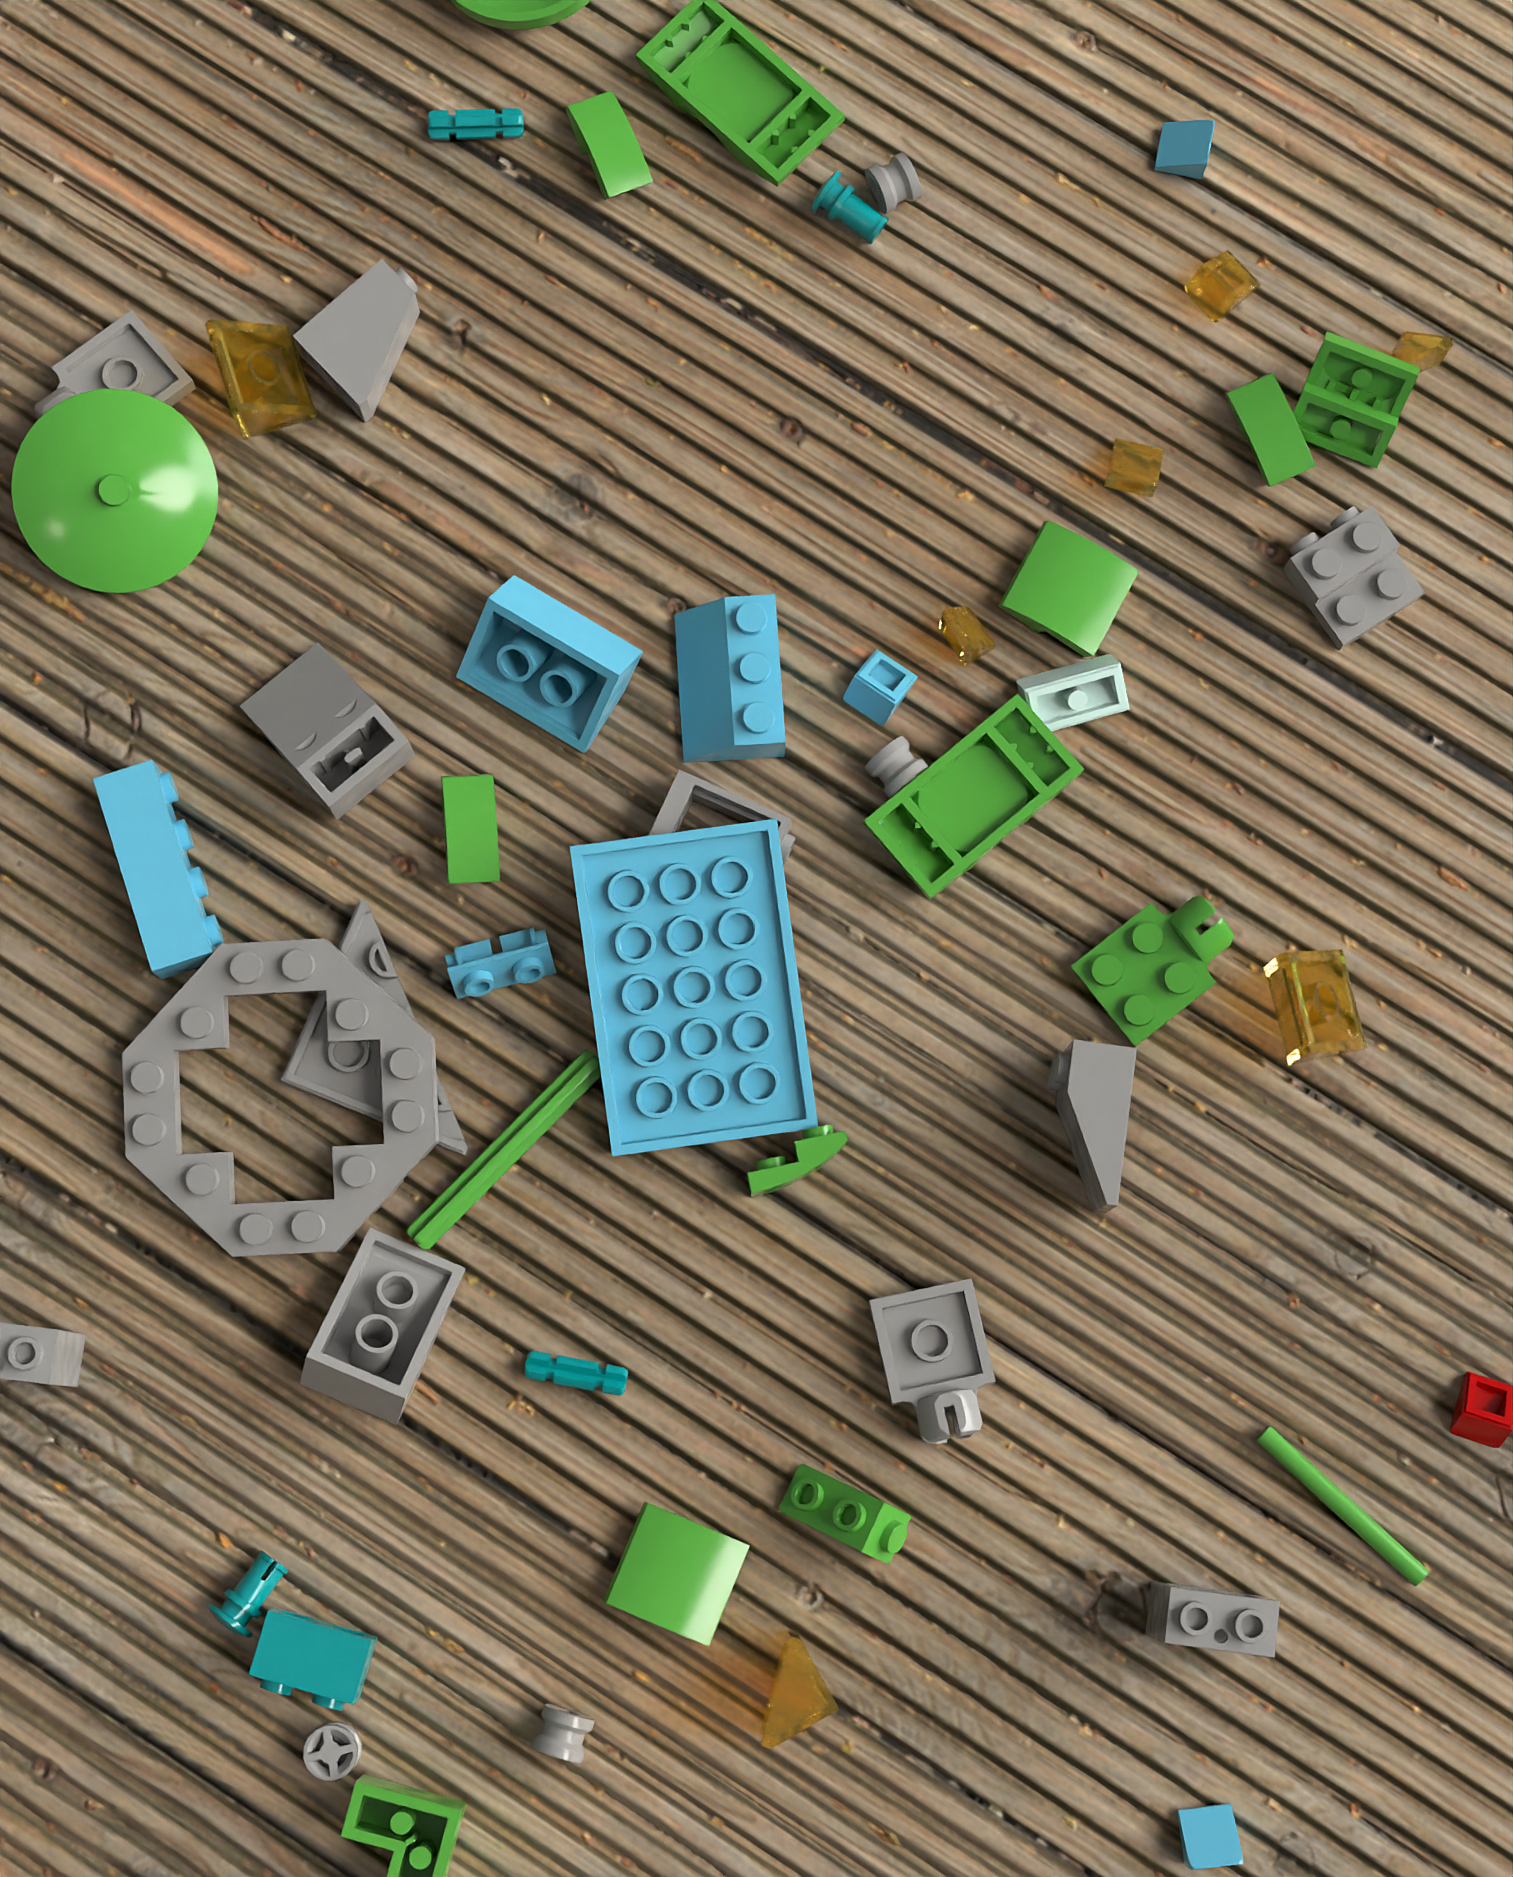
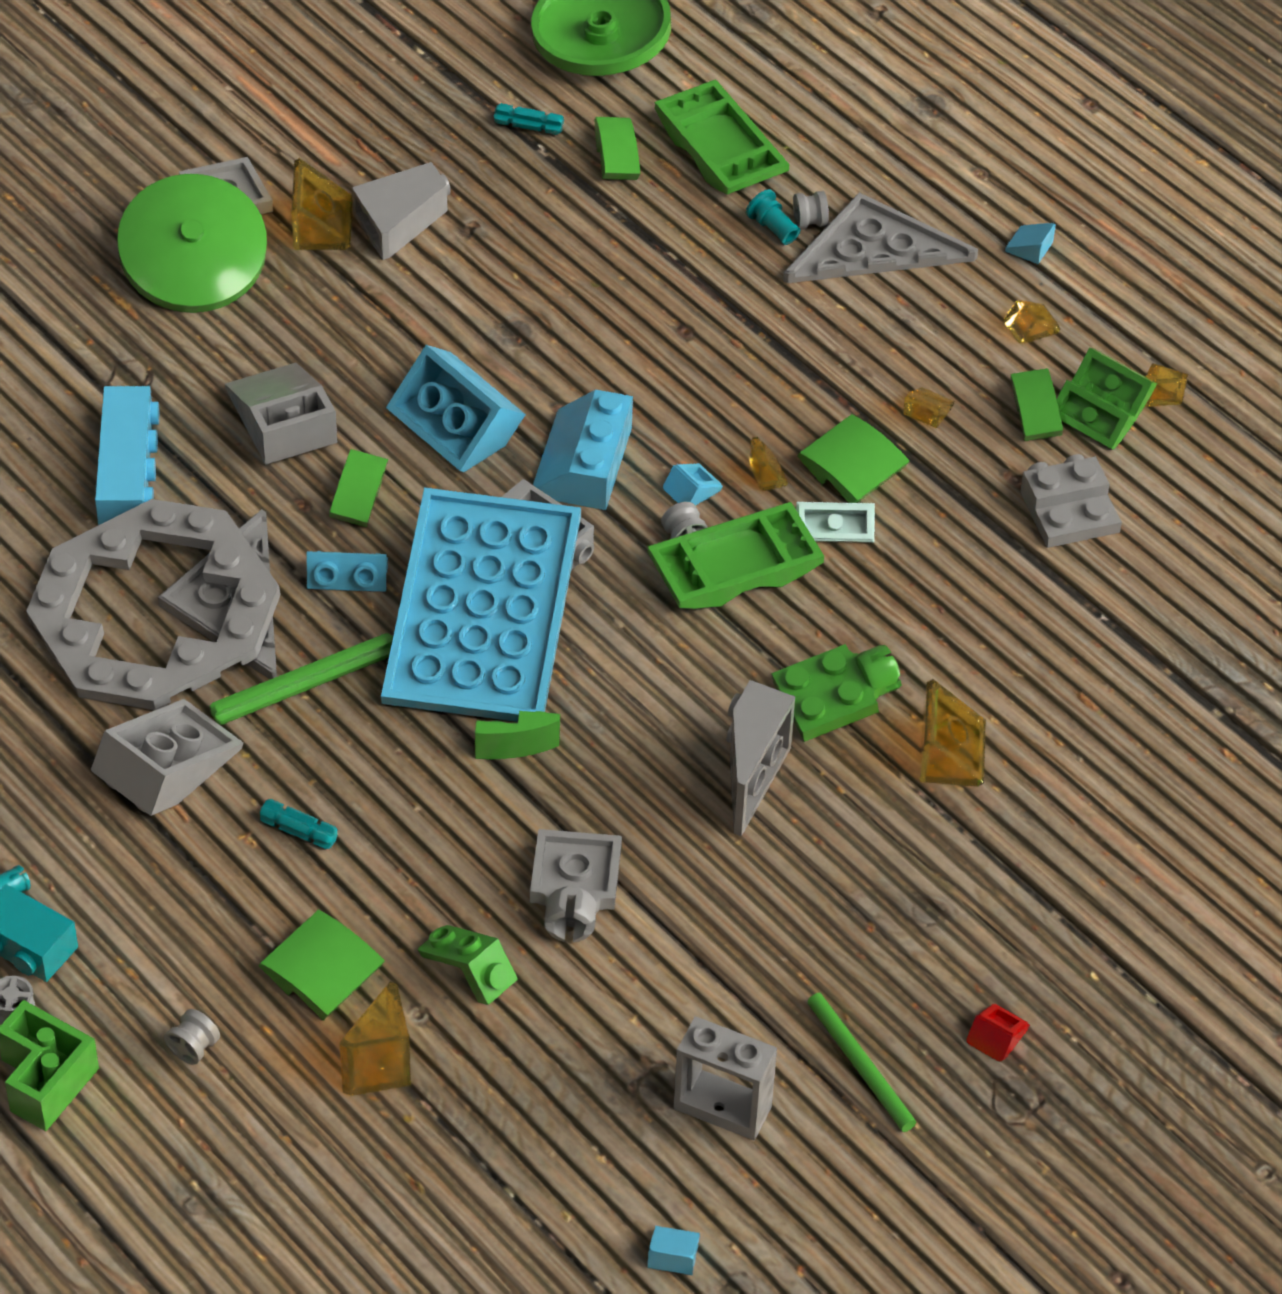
camera: 20 degrees right, 30 degrees down
(985, 204) = (875, 239): none -> light grey tile

